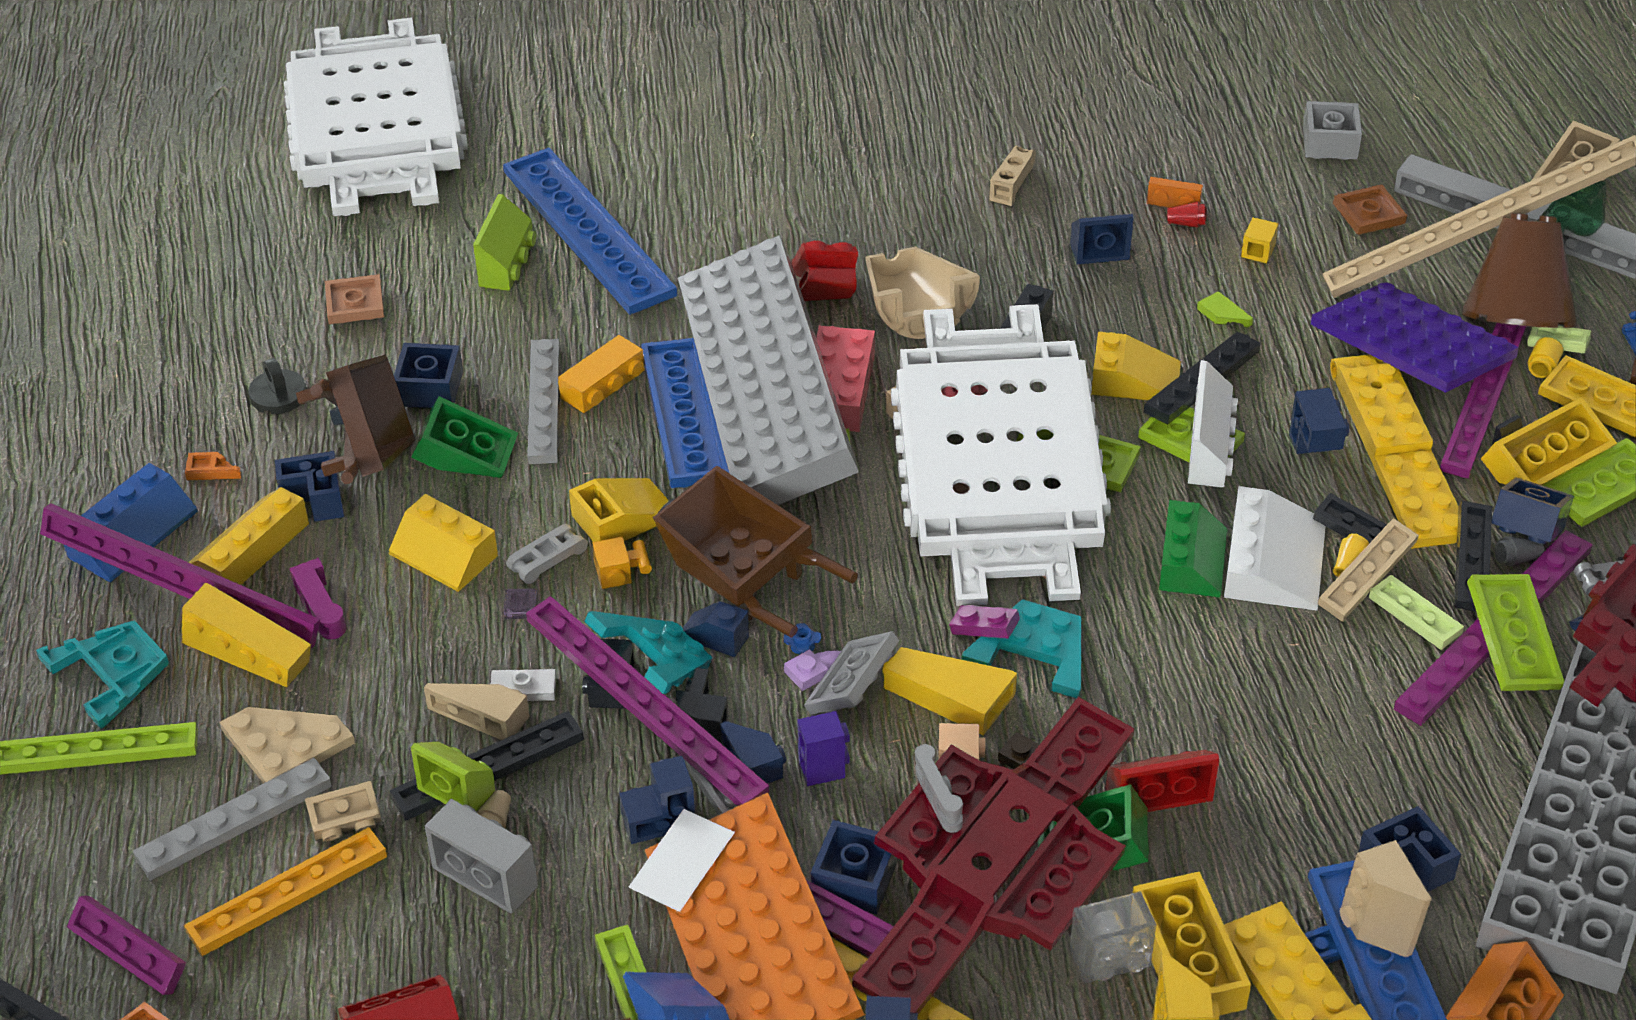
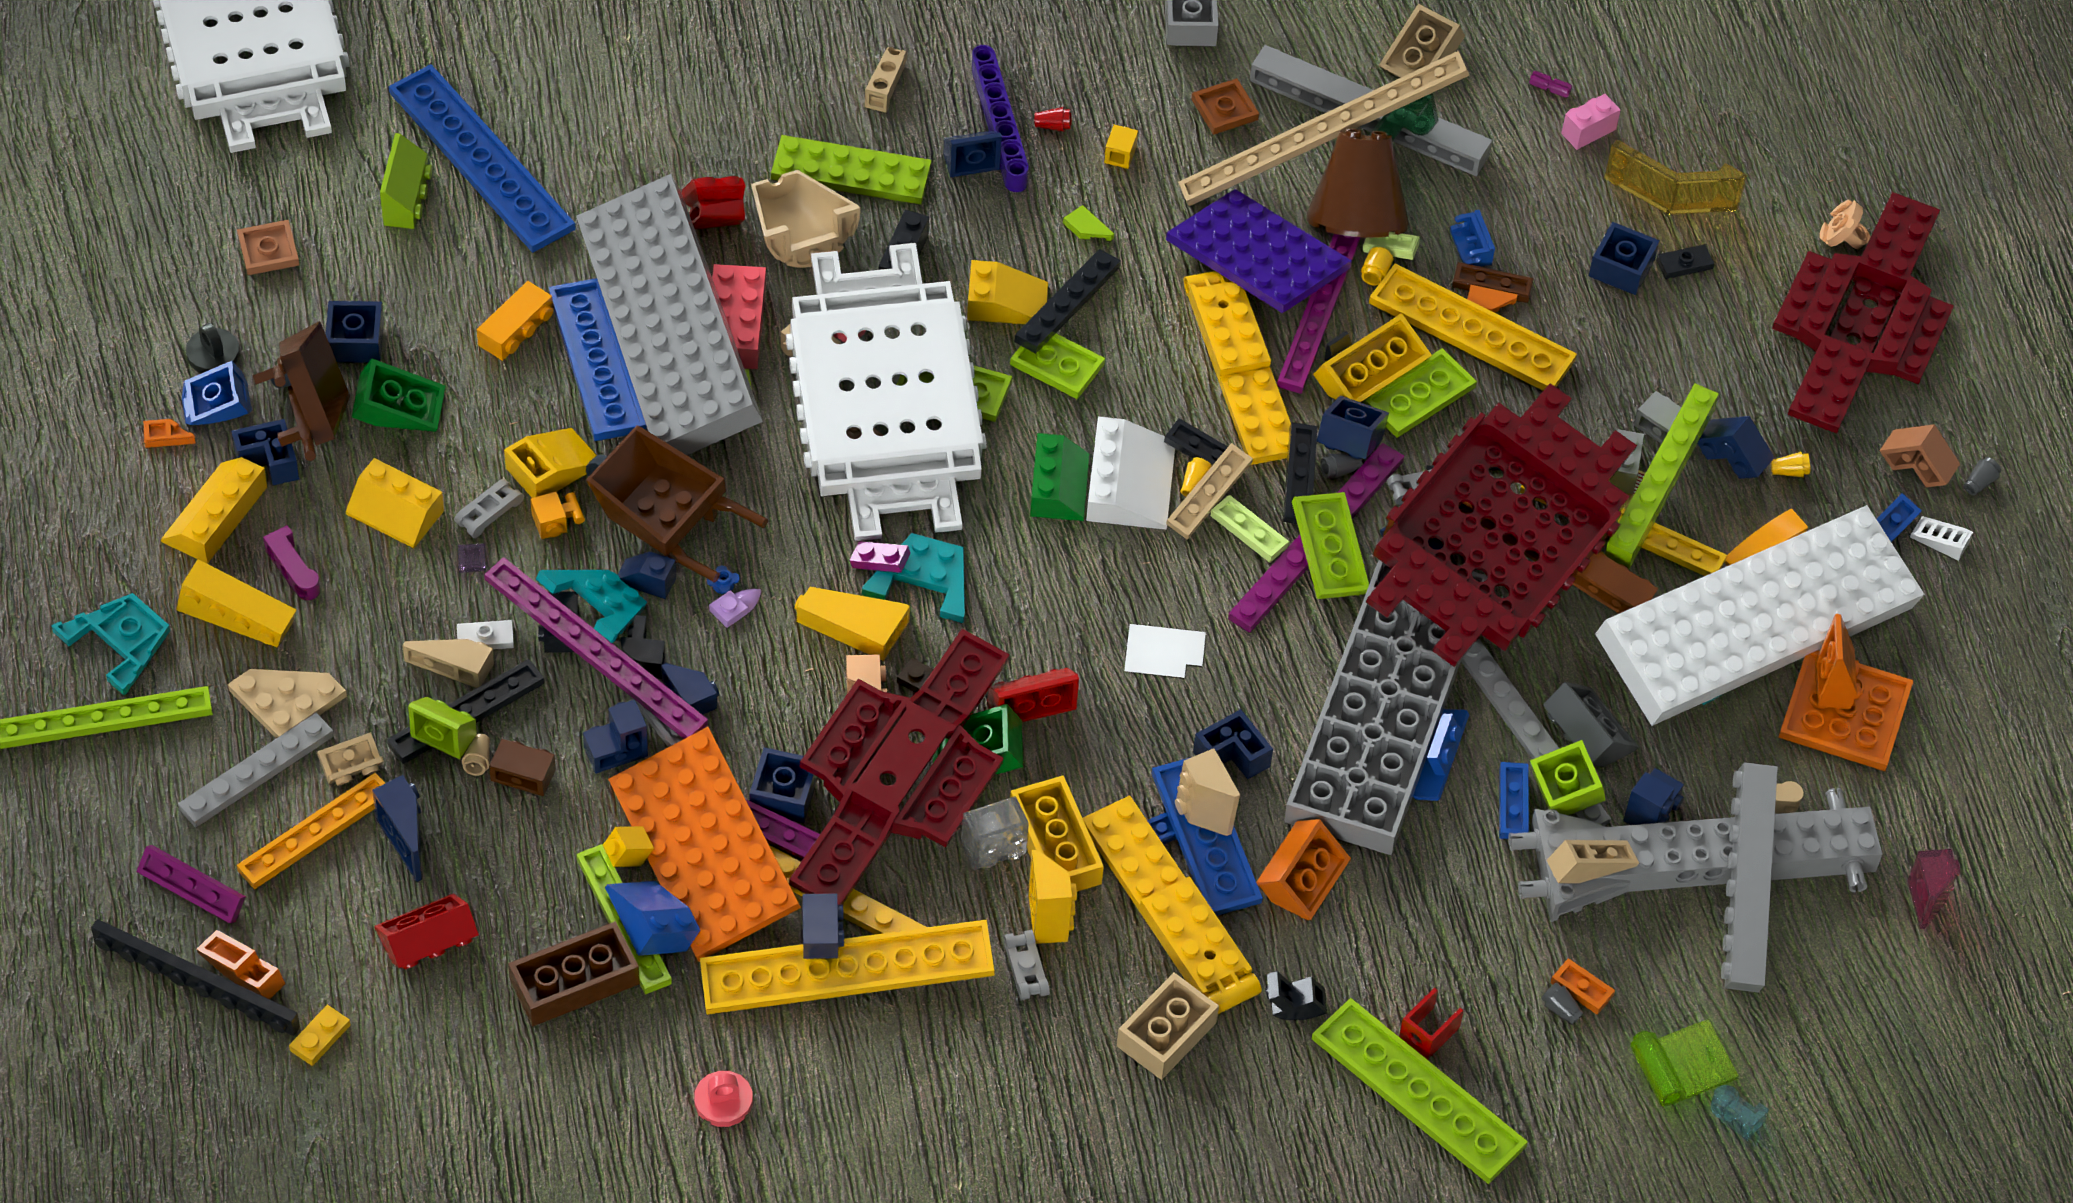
camera: 10 degrees left, 10 degrees up
(142, 508) = (105, 496): blue slope -> none
(164, 568) = (154, 545): magenta plate -> none
(271, 430) = (216, 395): none -> blue slope
(389, 882) = (399, 818): none -> dark blue slope
(481, 855) = (475, 793): light grey brick -> none
(543, 402) = (464, 350): light grey plate -> none
(549, 829) = (522, 767): none -> reddish brown brick
(658, 929) = (628, 846): none -> yellow brick
(681, 860) = (641, 786): white sticker -> none
(822, 748) = (749, 683): dark purple brick -> none
(851, 673) = (769, 612): light grey plate -> none
(938, 789) = (849, 720): light grey plate -> none
(979, 252) = (854, 169): none -> lime plate
(1127, 199) = (1000, 117): none -> dark purple beam
(1172, 192) = (1040, 96): orange plate -> none
(1212, 429) = (1075, 359): white slope -> none
(1317, 422) = (1169, 348): dark blue brick -> none
(1317, 740) = (1163, 650): none -> white sticker

